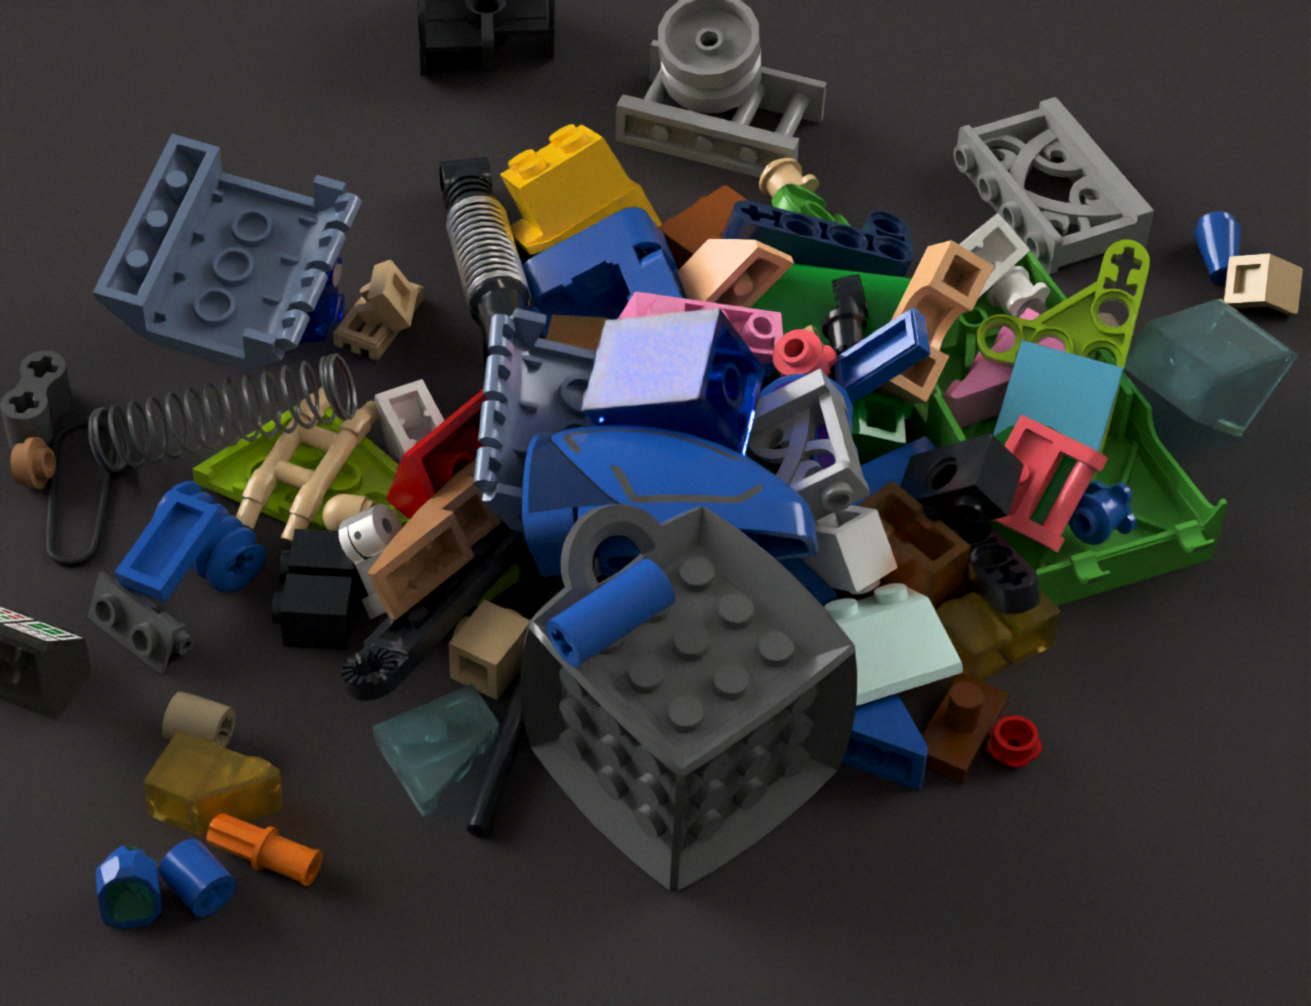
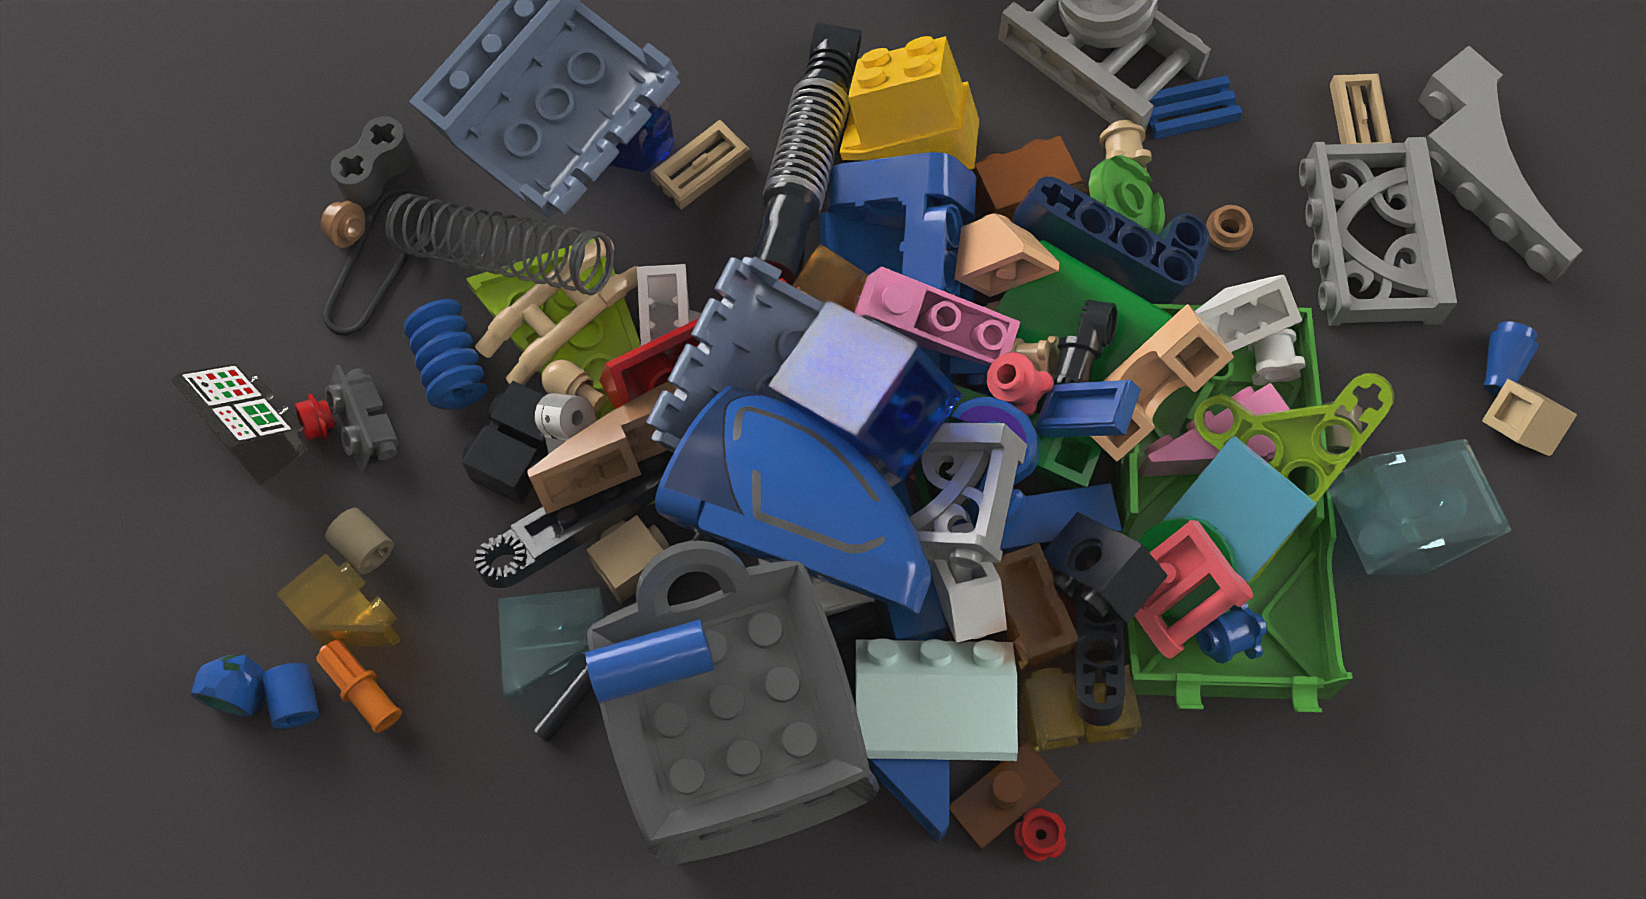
camera: 25 degrees right, 20 degrees up
(97, 632) = (314, 417): none -> red plate
(169, 546) = (395, 365): blue tile -> none
(388, 298) = (705, 158): tan tile -> none
(826, 133) = (1188, 100): none -> blue tile
(921, 219) = (1234, 218): none -> medium nougat plate
(976, 108) = (1343, 113): none -> tan tile
(1122, 115) = (1478, 168): none -> light grey arch

